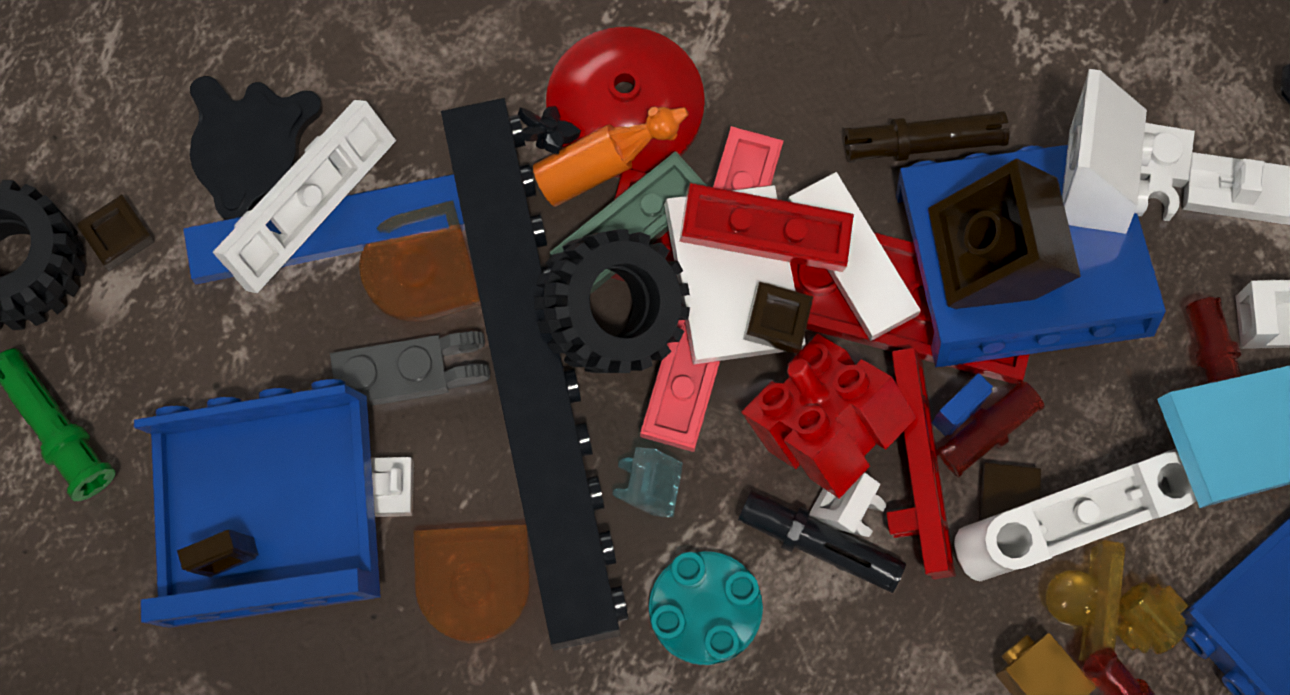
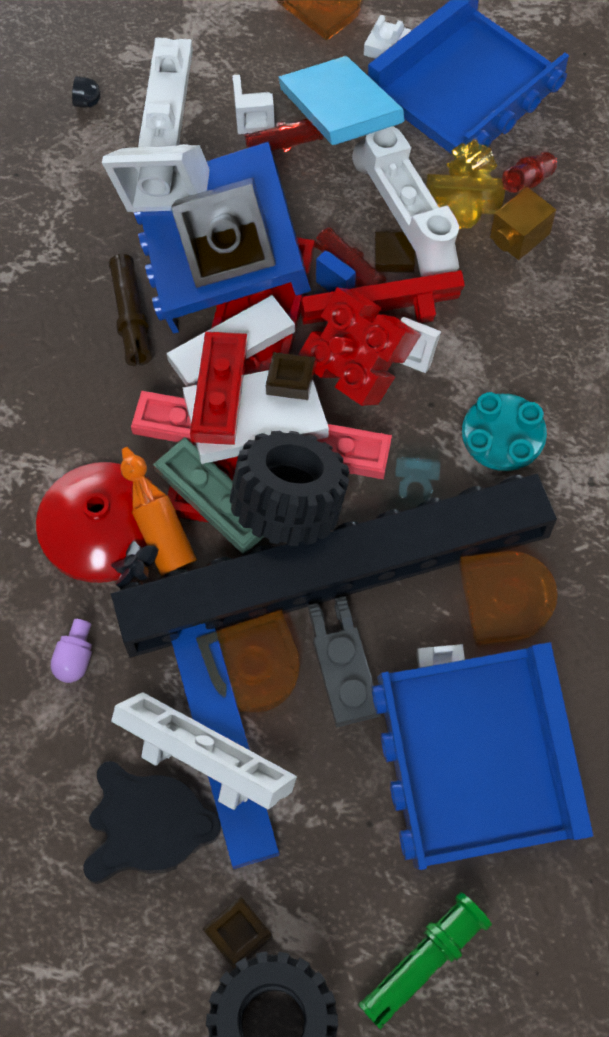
camera: 95 degrees left, 10 degrees down
(218, 553) = (526, 779): dark brown tile -> none
(453, 65) = (72, 653): none -> lavender cylinder
(809, 535) = (440, 374): black pin -> none

